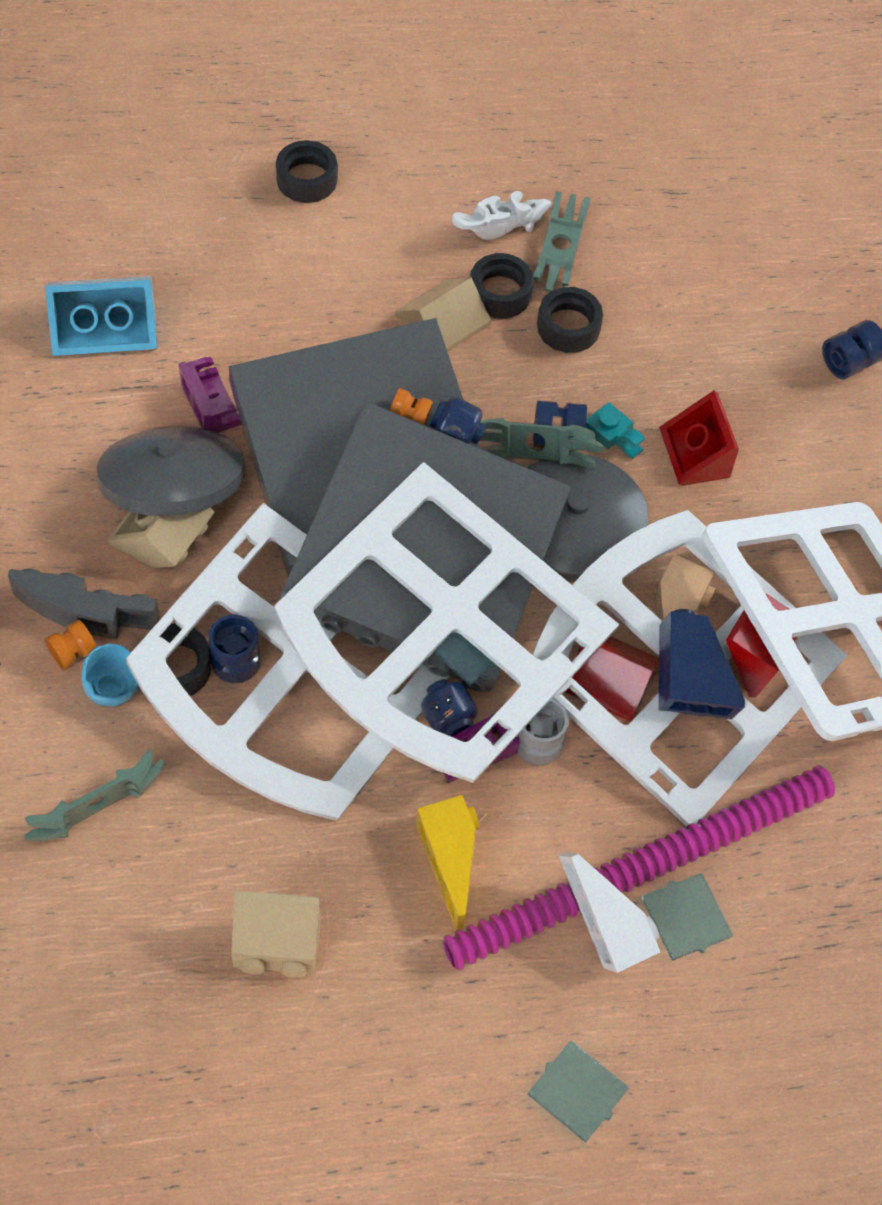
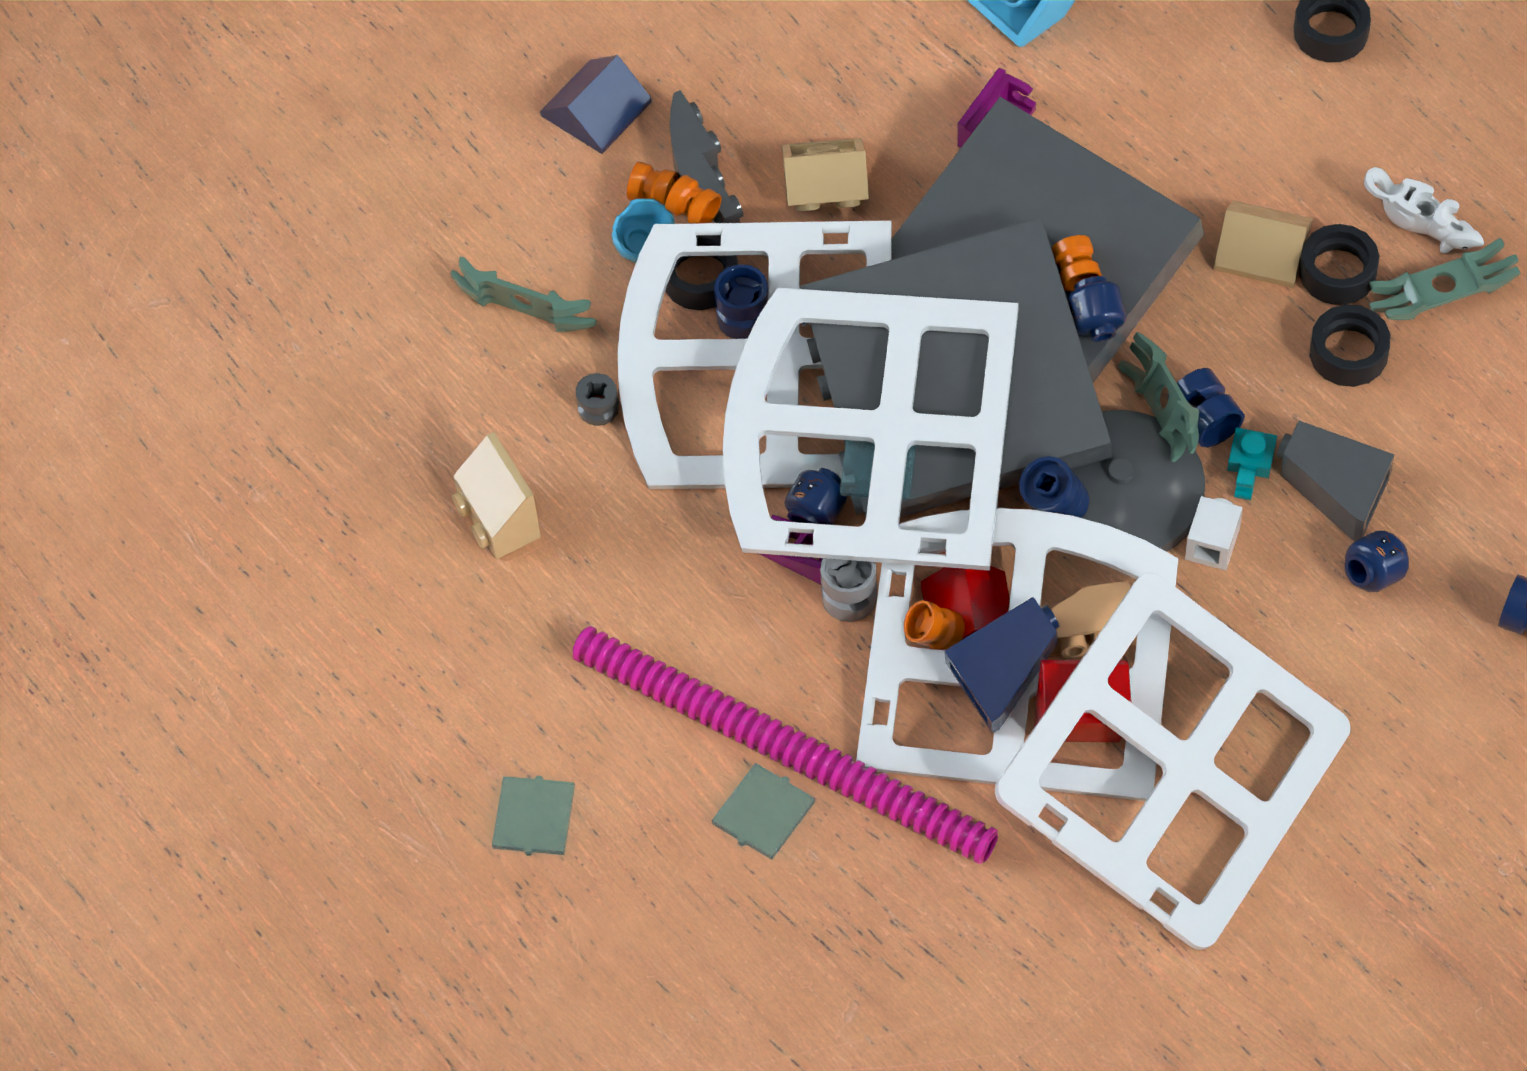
camera: 65 degrees right, 0 degrees up
(118, 623) = (692, 201): none -> orange wheel
(171, 470) = (878, 136): dark grey dish -> none
(234, 814) = (597, 410): none -> dark grey wheel
(449, 839) = (675, 588): yellow slope -> none
(573, 549) = (1053, 487): none -> dark blue wheel
(614, 922) = (699, 739): white slope -> none
(623, 704) = (933, 626): none -> orange wheel
(662, 483) = (1213, 532): none -> white brick
(665, 387) = (1336, 475): none -> dark grey slope
(701, 442) = (1294, 540): red slope -> none
(754, 408) = (1376, 561): none -> dark blue head

